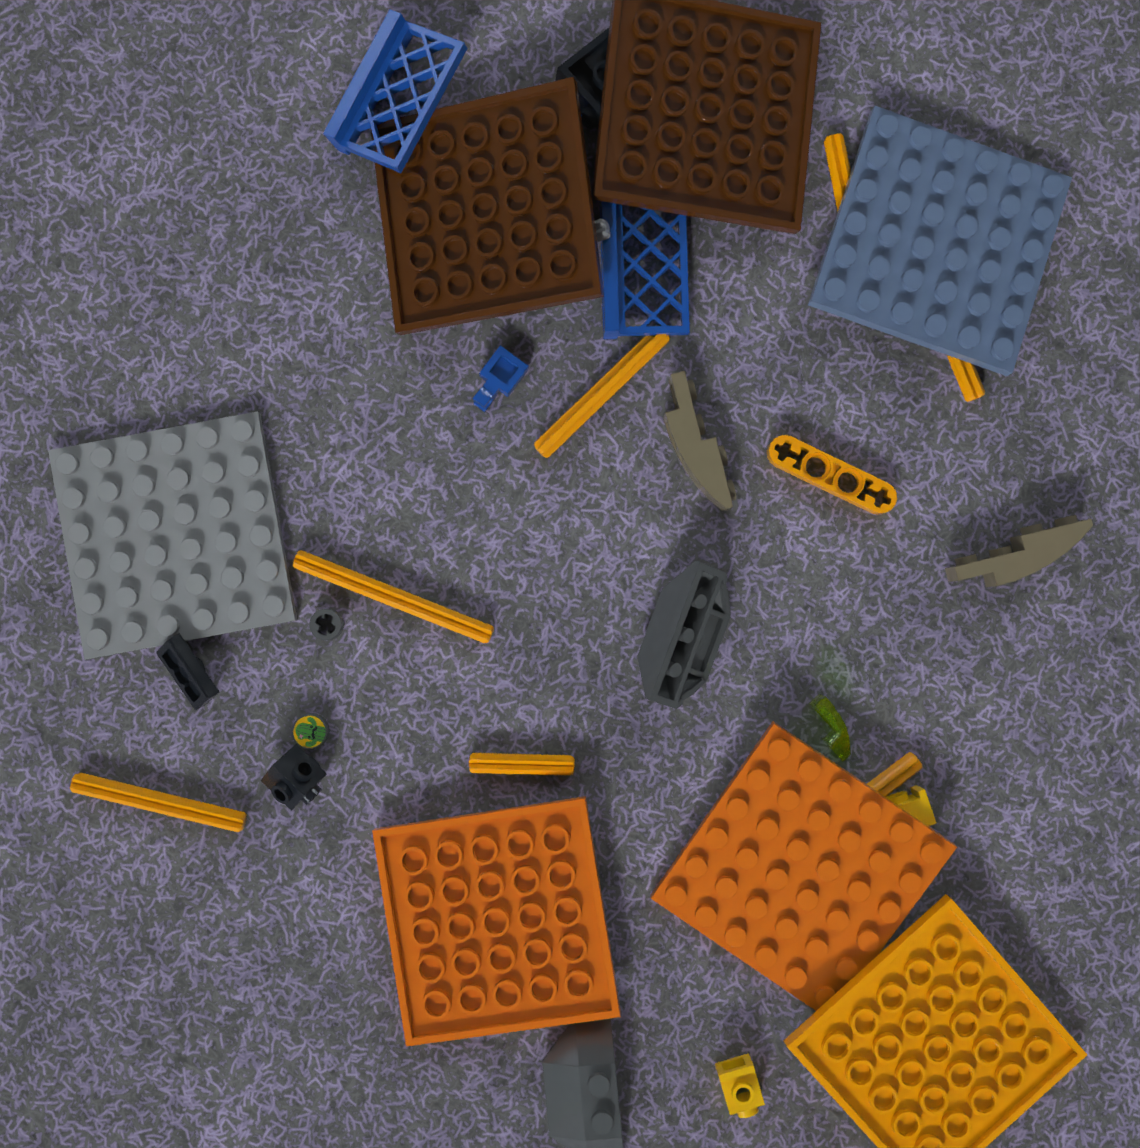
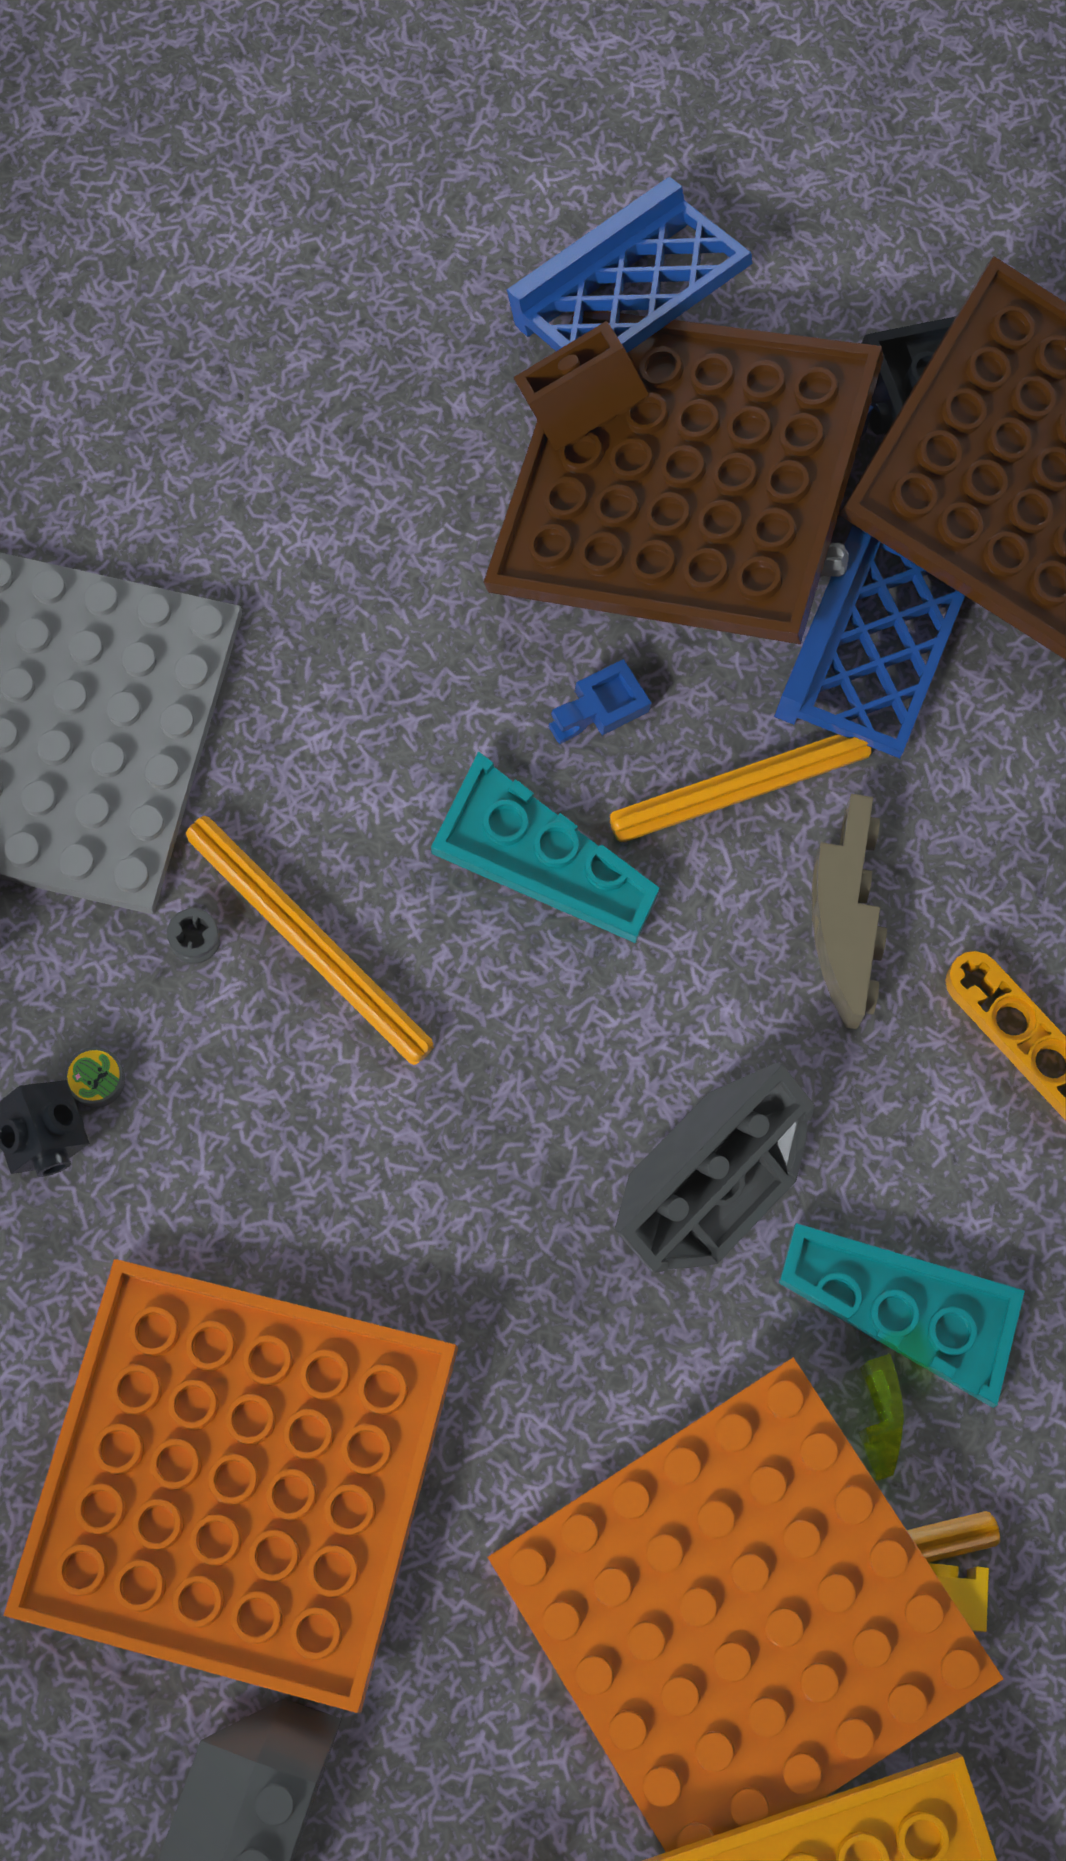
camera: 20 degrees right, 15 degrees down
(399, 183) = (581, 386): none -> reddish brown brick
(498, 486) = (526, 846): none -> teal wing
(521, 764) = (383, 1263): light orange axle -> none
(833, 659) = (922, 1310): none -> teal wing

